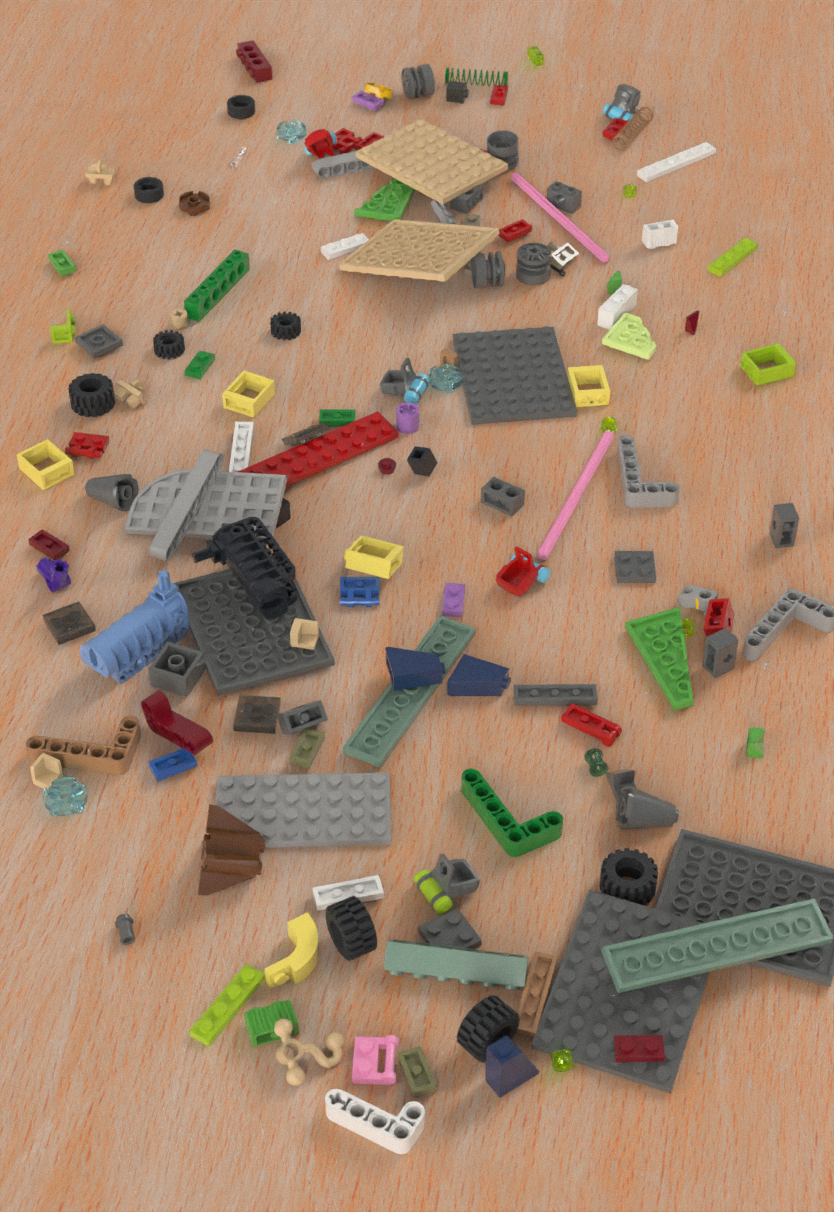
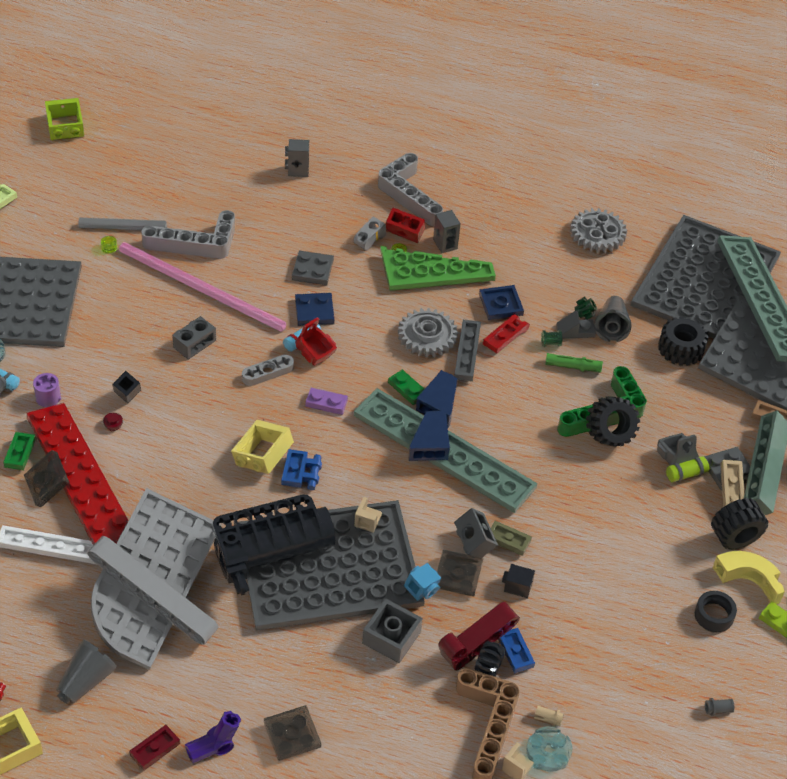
camera: 85 degrees left, 5 degrees up
(100, 799) = (549, 716): none -> tan pin
(139, 633) = (340, 659): medium blue piece -> none
(152, 739) = (490, 658): none -> black gear
(228, 852) = (650, 606): reddish brown brick -> none
(231, 680) = (423, 582): none -> dark azure brick
(239, 908) = (712, 624): none -> black tyre
(253, 758) = (518, 580): none -> black brick
(311, 808) = (580, 551): light grey plate -> none
(364, 889) = (684, 530): white plate -> none
(410, 928) = (732, 481): none -> tan plate
(482, 560) = (274, 363): none -> light grey beam
(484, 811) = (627, 421): none -> black tyre
(494, 652) = (406, 386): none -> green plate
(566, 784) = (573, 362): none -> bright green pin
(568, 659) = (427, 332): none -> light grey gear
(576, 575) = (313, 306): none -> dark blue plate
(589, 375) = (47, 233): light yellow window -> none
(637, 716) = (501, 302): none -> dark blue plate
(640, 429) = (122, 224): none -> light grey axle
(647, 782) = (585, 308): none -> dark green gear
(755, 742) = (541, 238): bright green slope -> none
(792, 793) = (598, 230): none -> light grey gear

